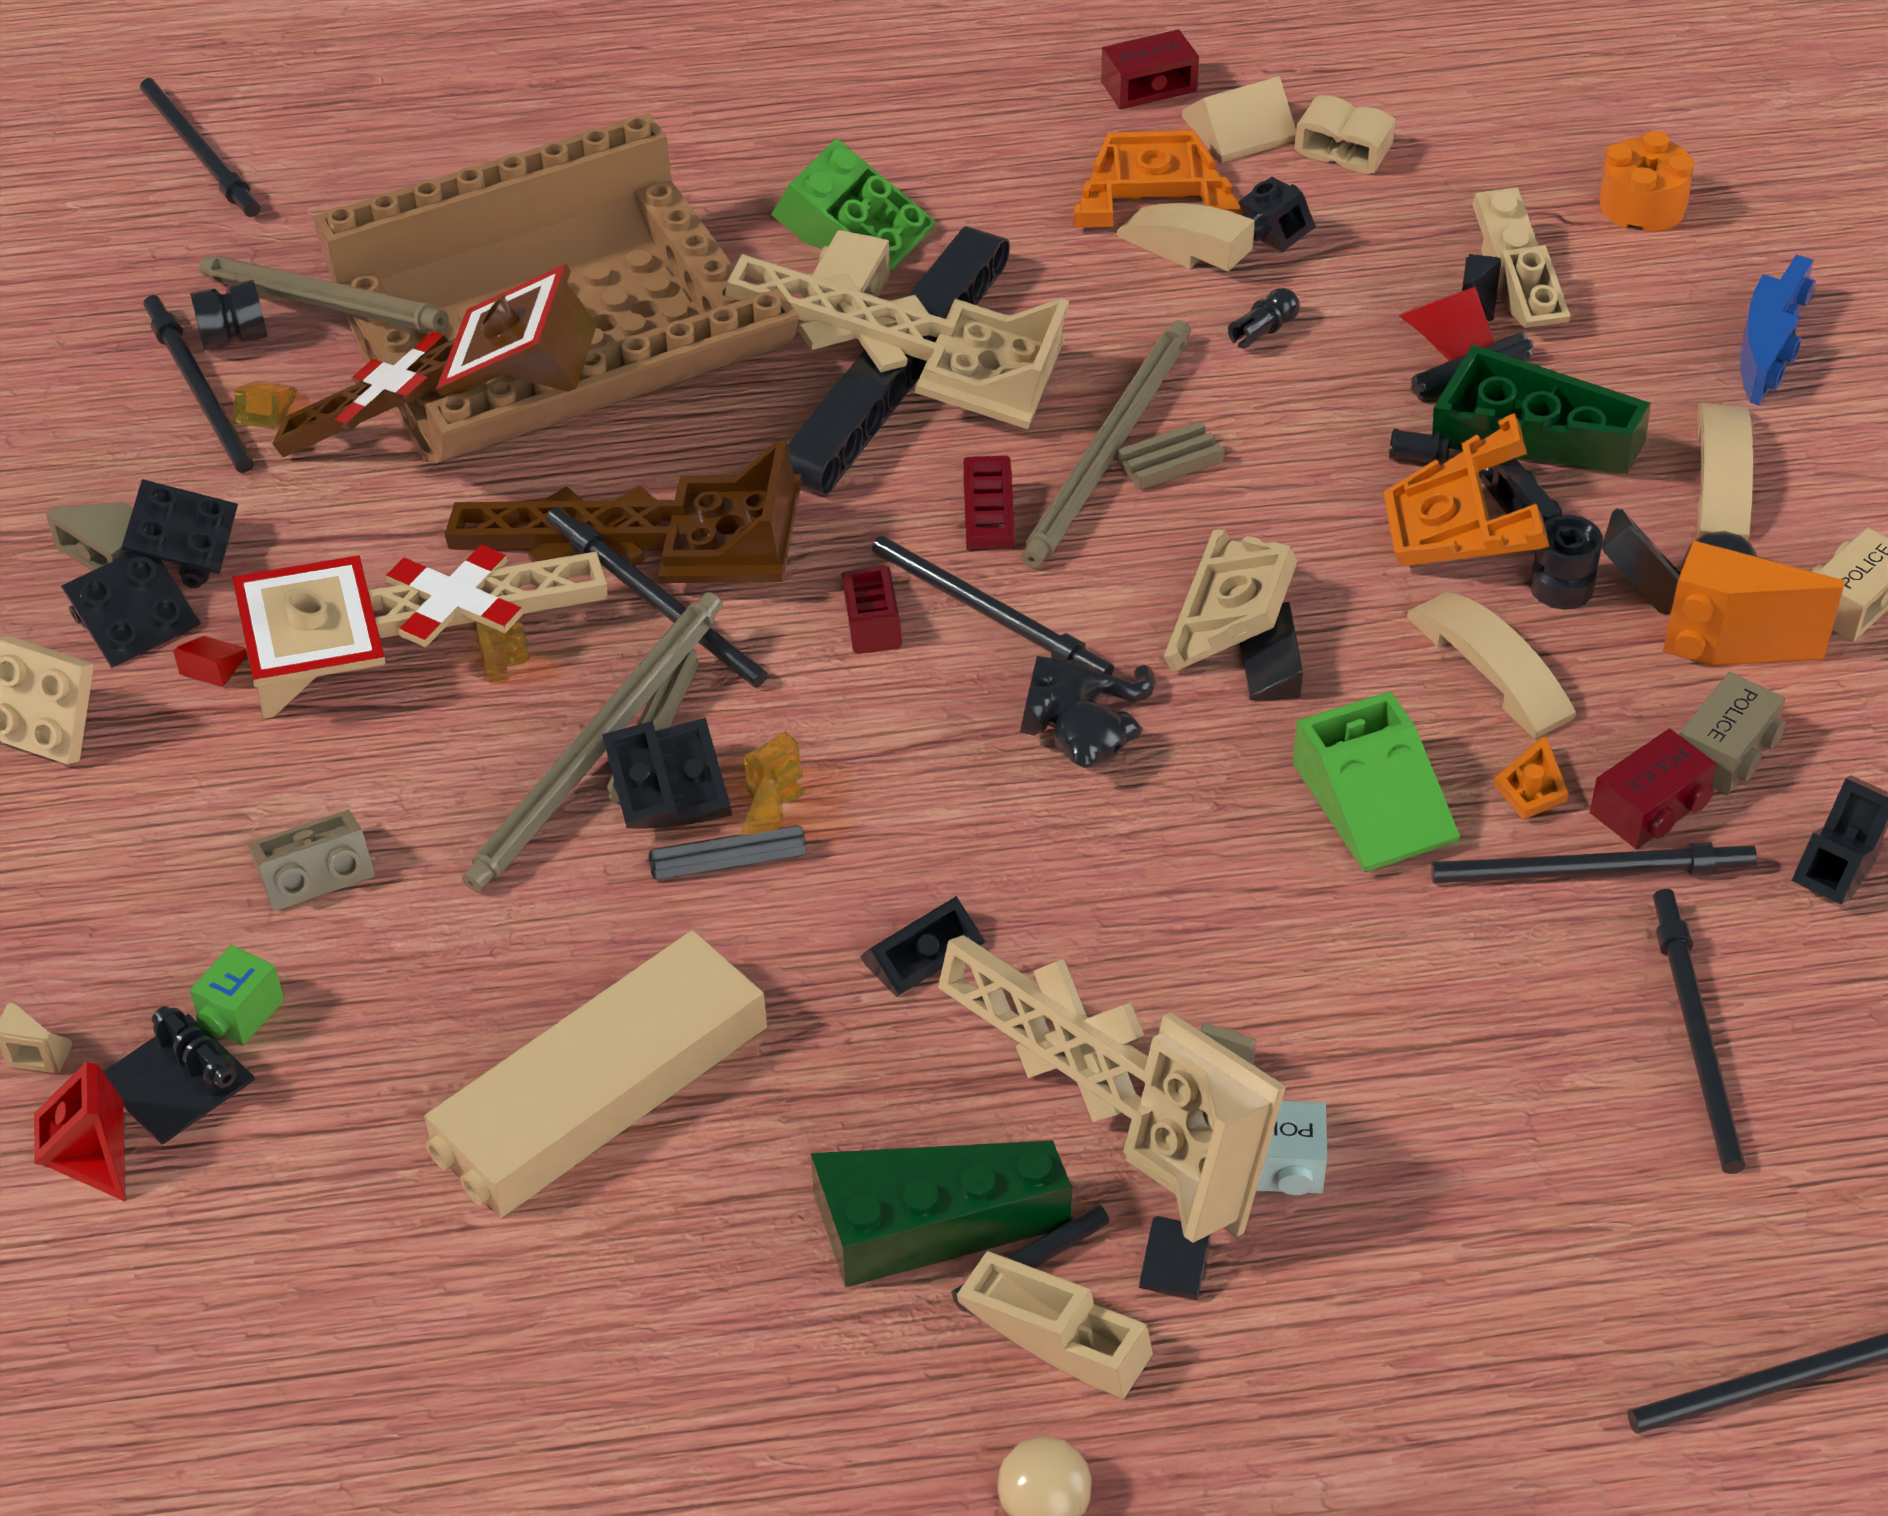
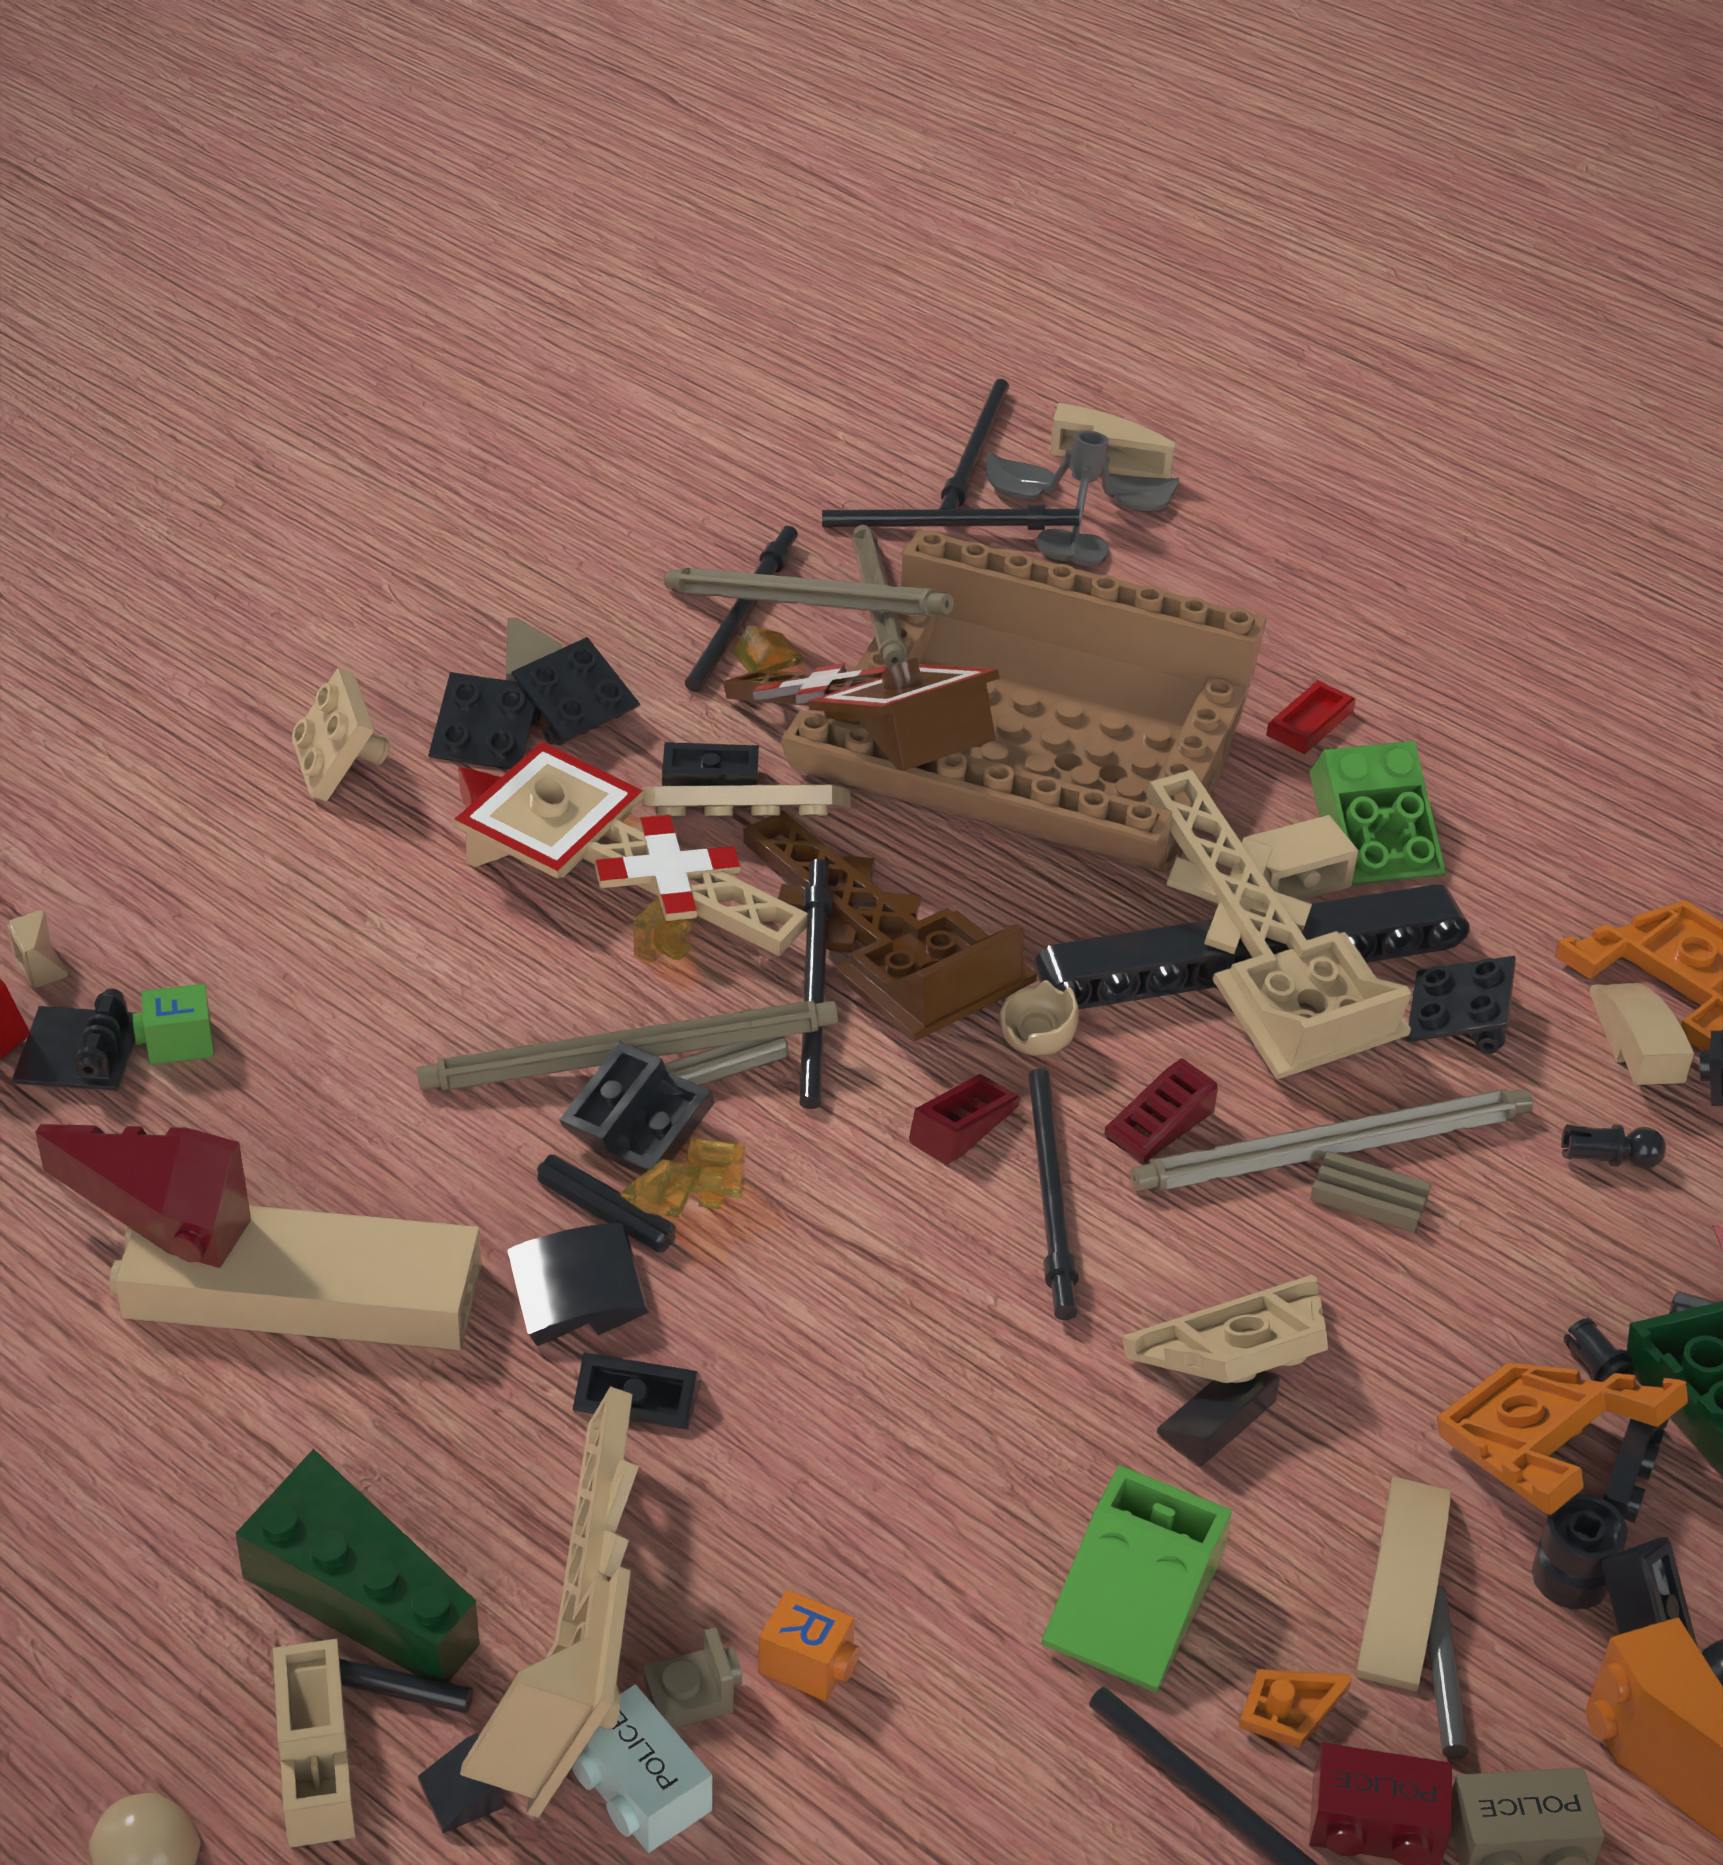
camera: 45 degrees right, 5 degrees down
(228, 315) = (809, 560): black wheel -> none
(271, 325) = (810, 591): none -> dark tan piece
(304, 74) = (1131, 447): none -> tan slope
(312, 859) = (347, 975): dark tan bracket -> none
(326, 167) = (1034, 517): none -> black bar
(332, 95) = (1086, 462): none -> dark grey plant
(353, 510) = (709, 764): none -> black plate
(445, 501) = (762, 799): none -> tan wing
(462, 1089) = (170, 1188): none -> dark red wedge
(712, 178) = (1310, 717): none -> red tile
(787, 915) = (577, 1281): none -> black slope
(838, 502) = (1039, 1019): none -> tan hair
(1064, 698) = (981, 1304): black animal -> none
(1076, 278) = (1464, 1001): none -> black hinge
(1253, 989) = (807, 1645): none -> orange brick
(1599, 705) = (1446, 1680): none -> dark grey bar

